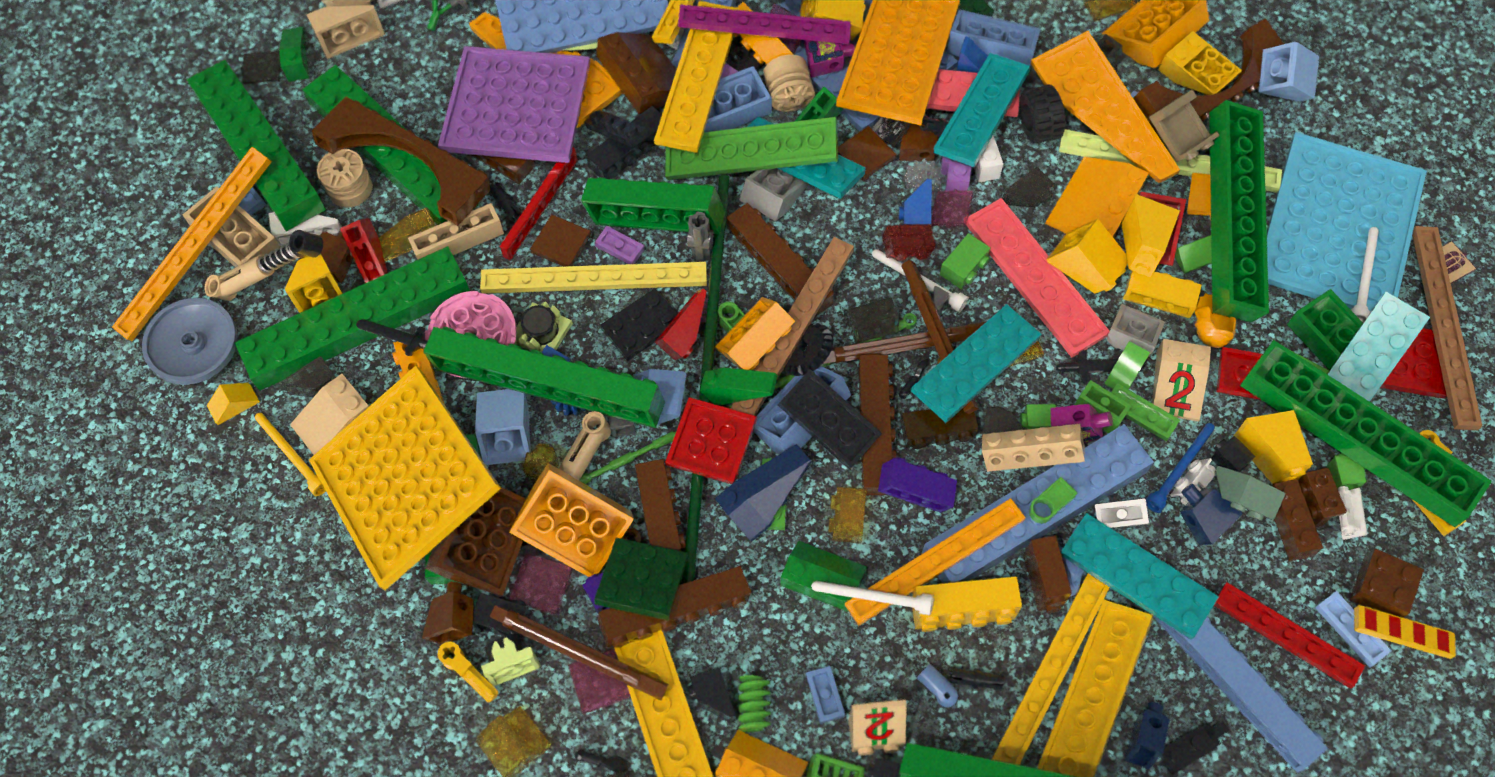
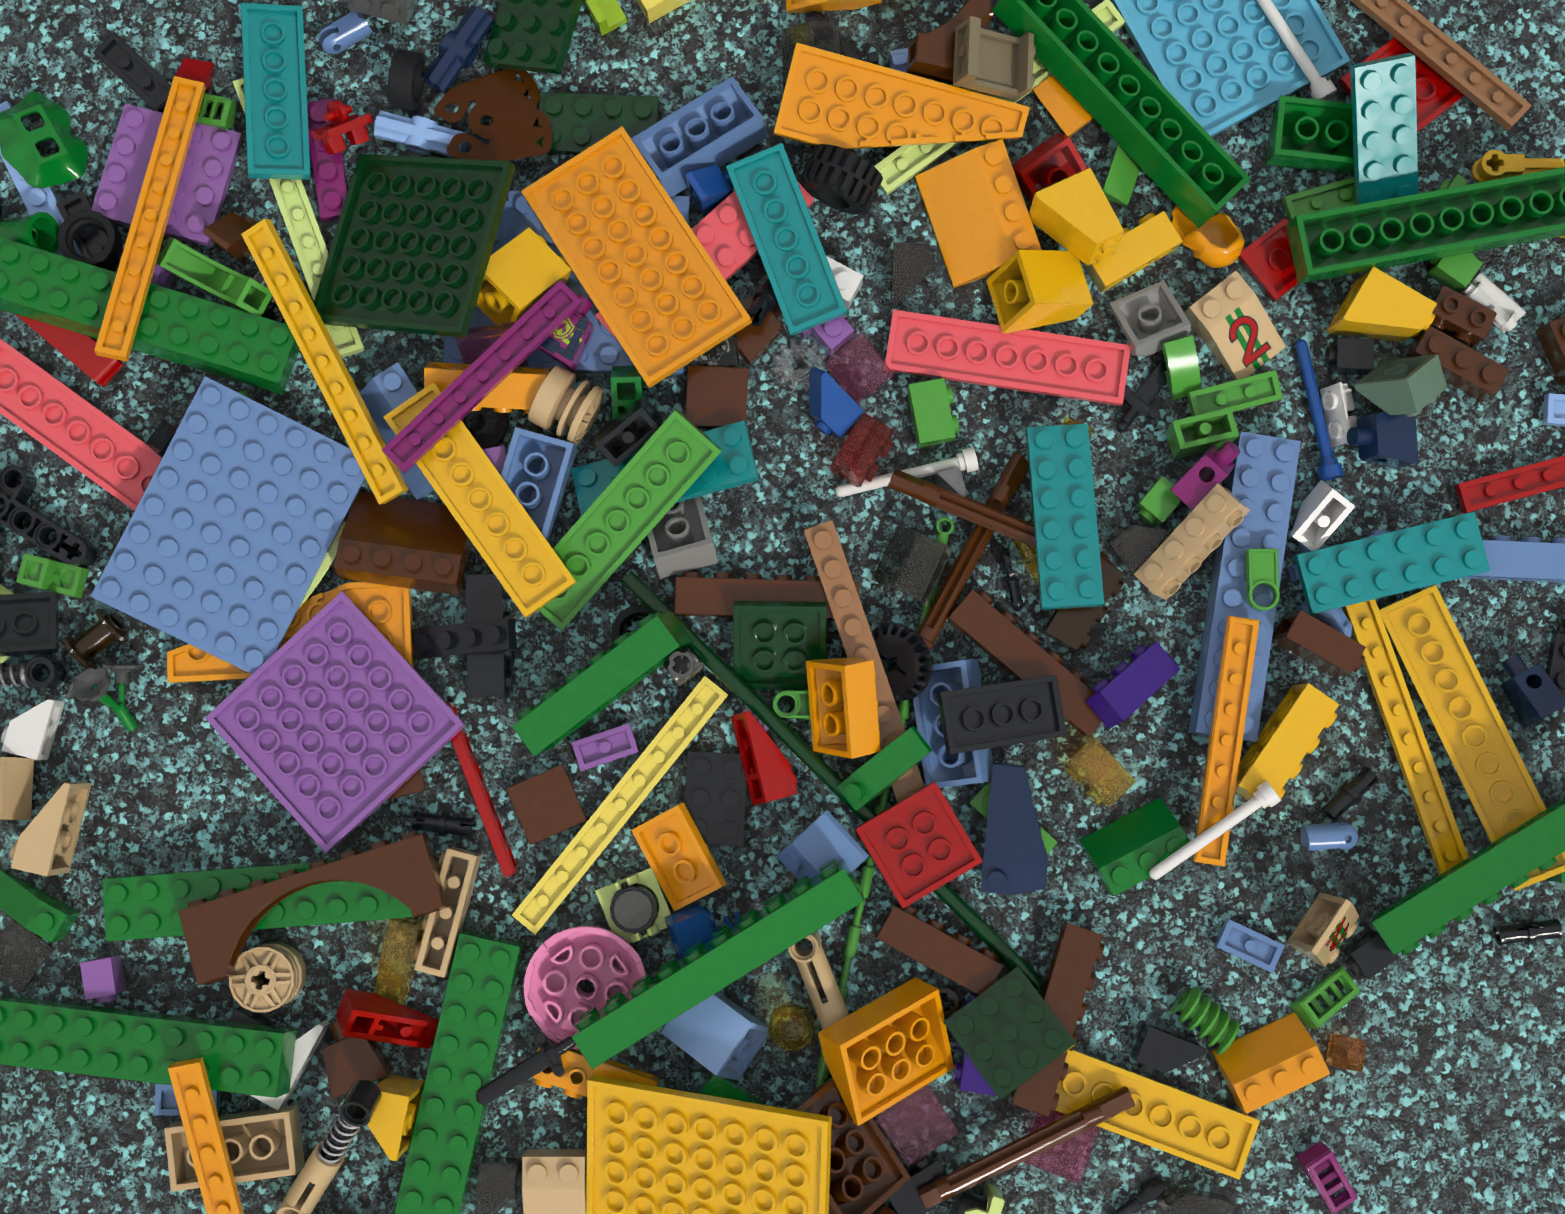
camera: 55 degrees left, 20 degrees up
(280, 108) = (103, 978): none -> medium lavender brick
(590, 326) = (679, 856): none -> light orange plate
(757, 274) = (776, 641): none -> dark green plate
(802, 111) = (628, 431): none -> black brick

